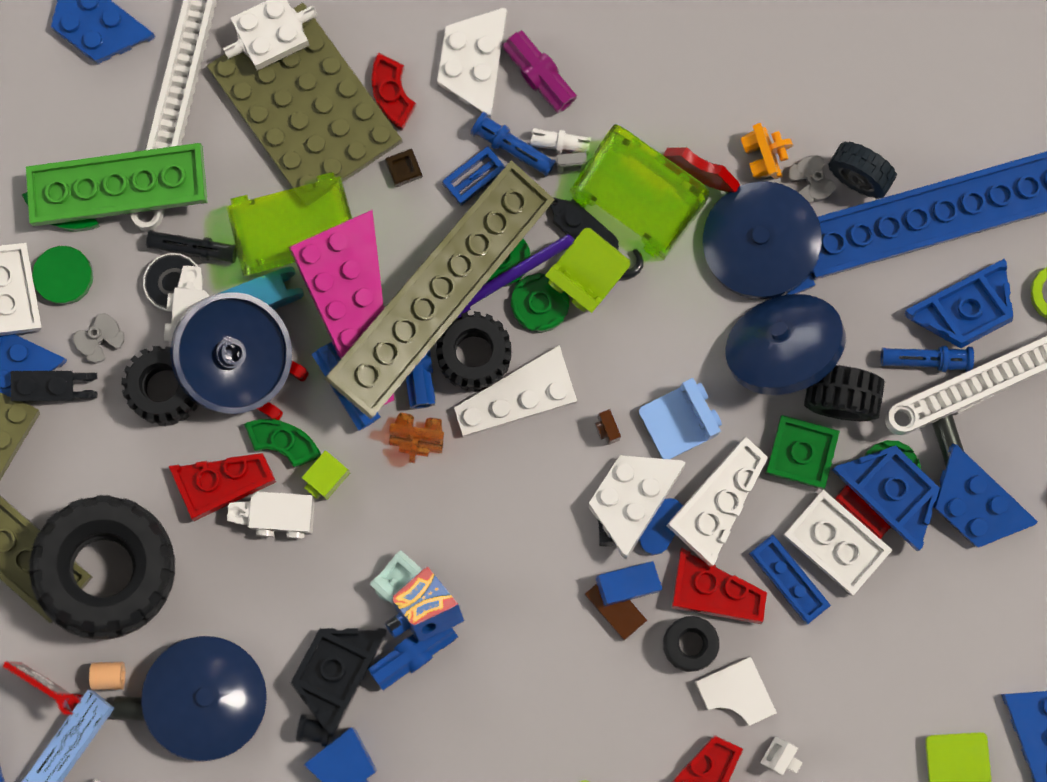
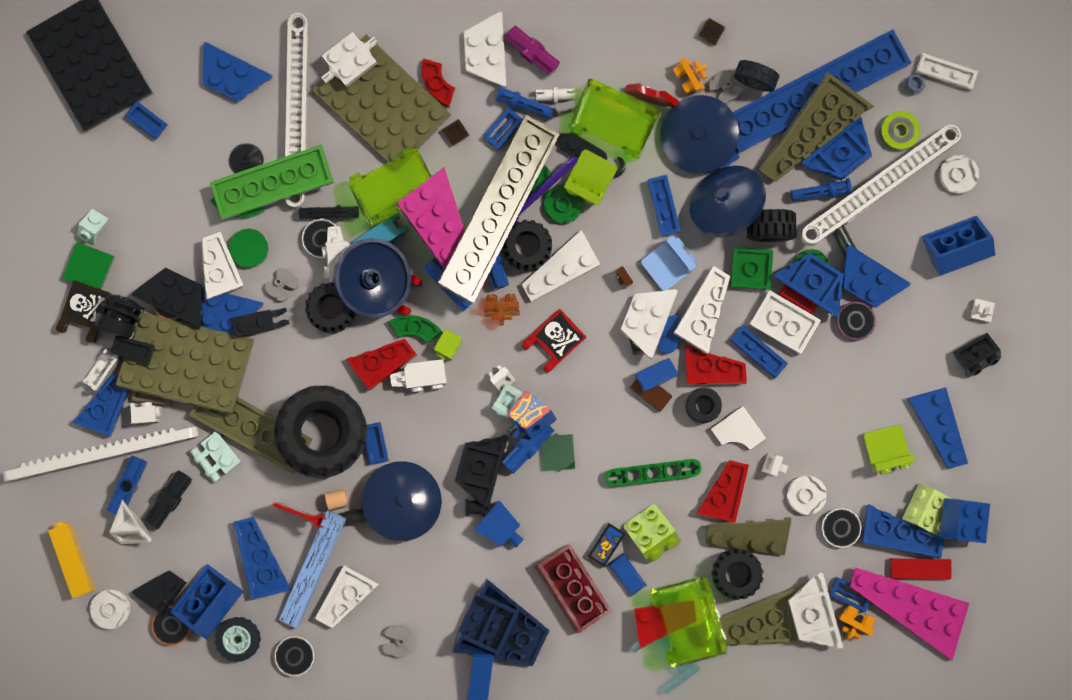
camera: 10 degrees left, 5 degrees up
(87, 142) = (245, 157): none -> black piece
(185, 603) = (376, 444): none -> blue tile
(394, 541) = (501, 378): none -> white tile
(457, 672) = (558, 453): none -> clear green piece
(491, 498) = (557, 337): none -> flag
(609, 736) = (662, 469): none -> green beam
(689, 333) = (664, 205): none -> blue plate
(808, 96) = (712, 31): none -> dark brown tile
(942, 254) = (820, 120): none -> olive wing
(945, 562) = (856, 321): none -> black tile

